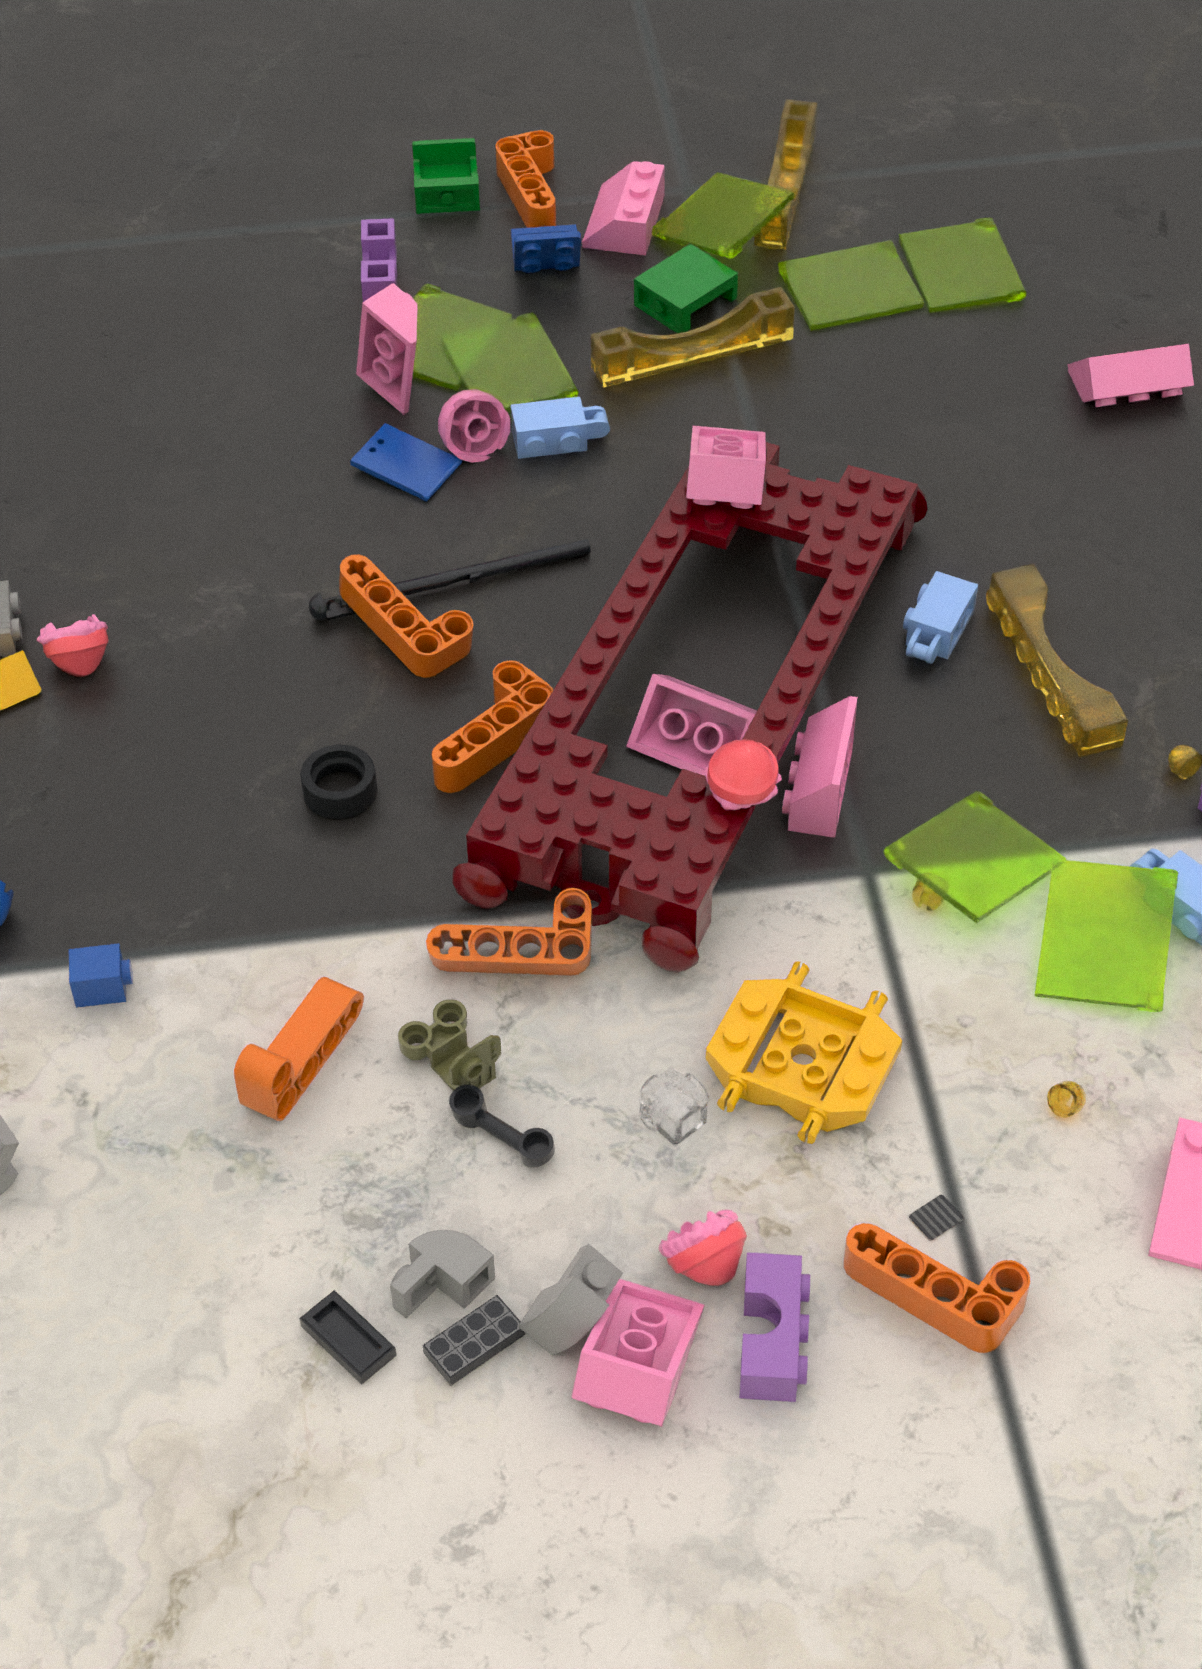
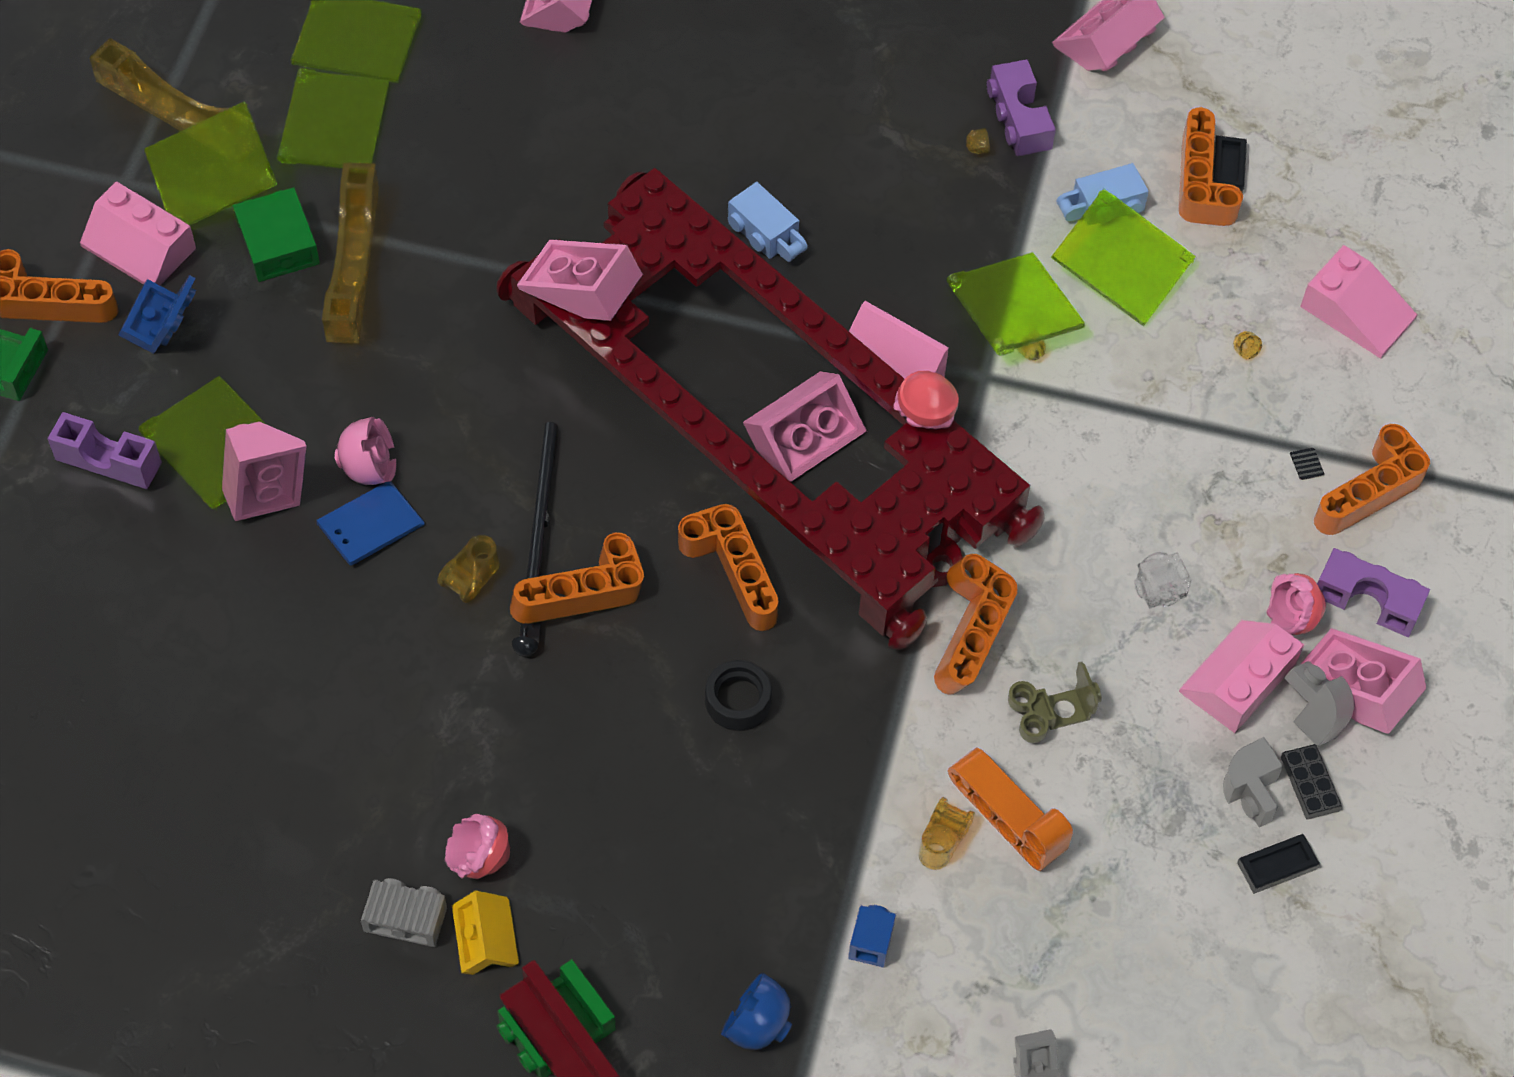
camera: 70 degrees left, 10 degrees up
(245, 1000) = (947, 829): none -> clear yellow piece
(389, 541) = (468, 574): none -> clear yellow piece
(470, 1110) = (1162, 685): black bar -> none
(510, 362) = (293, 396): clear neon green piece -> none
(556, 426) = (400, 394): light blue brick -> none
(562, 1215) = (1242, 672): none -> bright pink slope
(810, 1027) = (1142, 517): yellow piece -> none
(1086, 712) = (906, 177): clear yellow arch -> none

